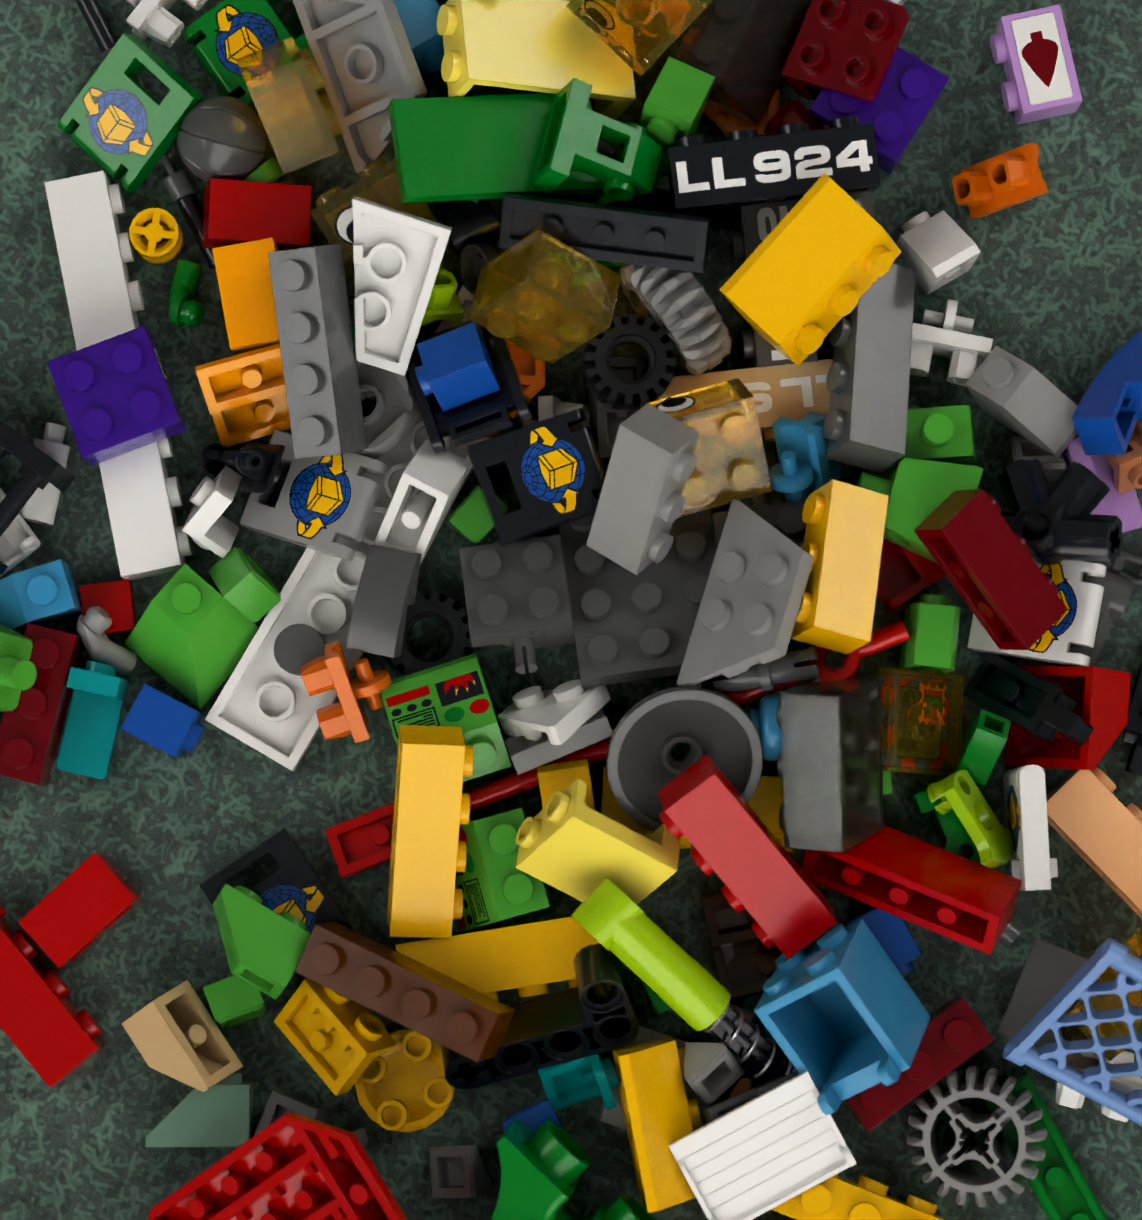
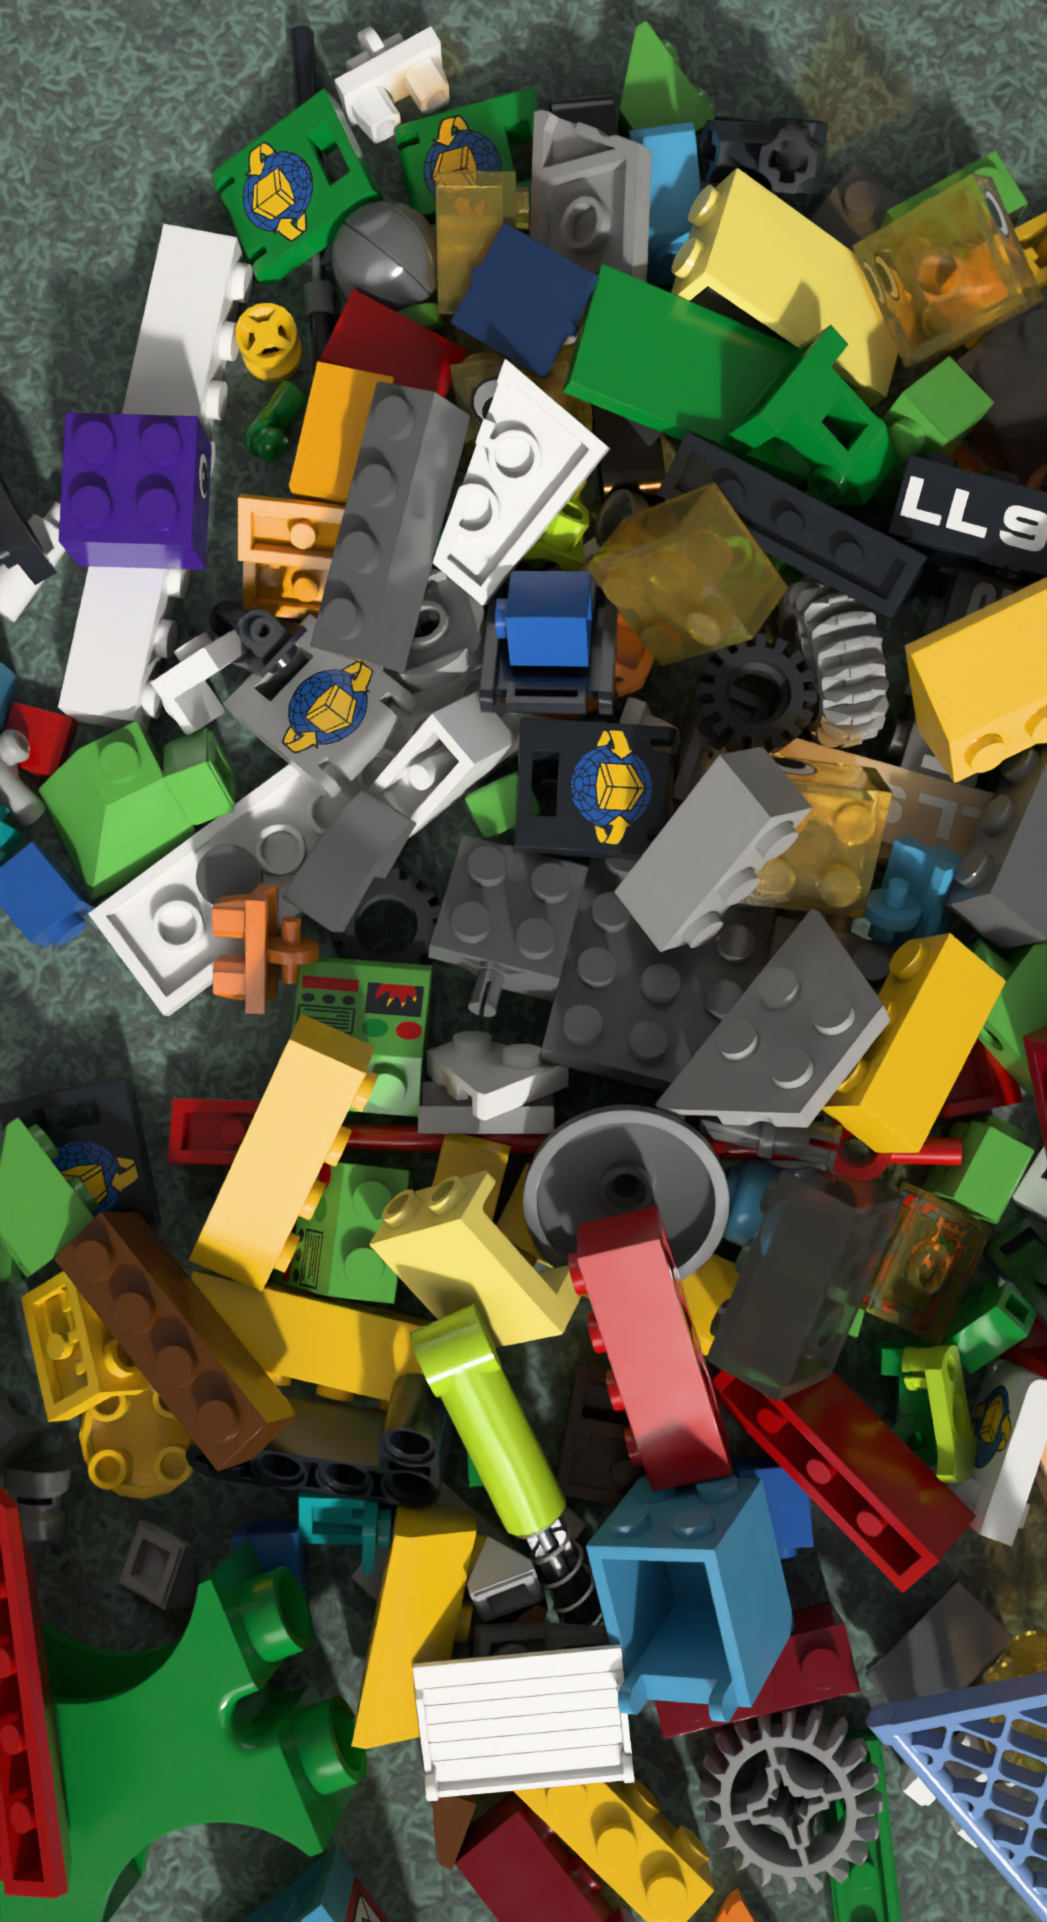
camera: 20 degrees right, 0 degrees up
(345, 146) = (524, 300): none -> dark blue piece

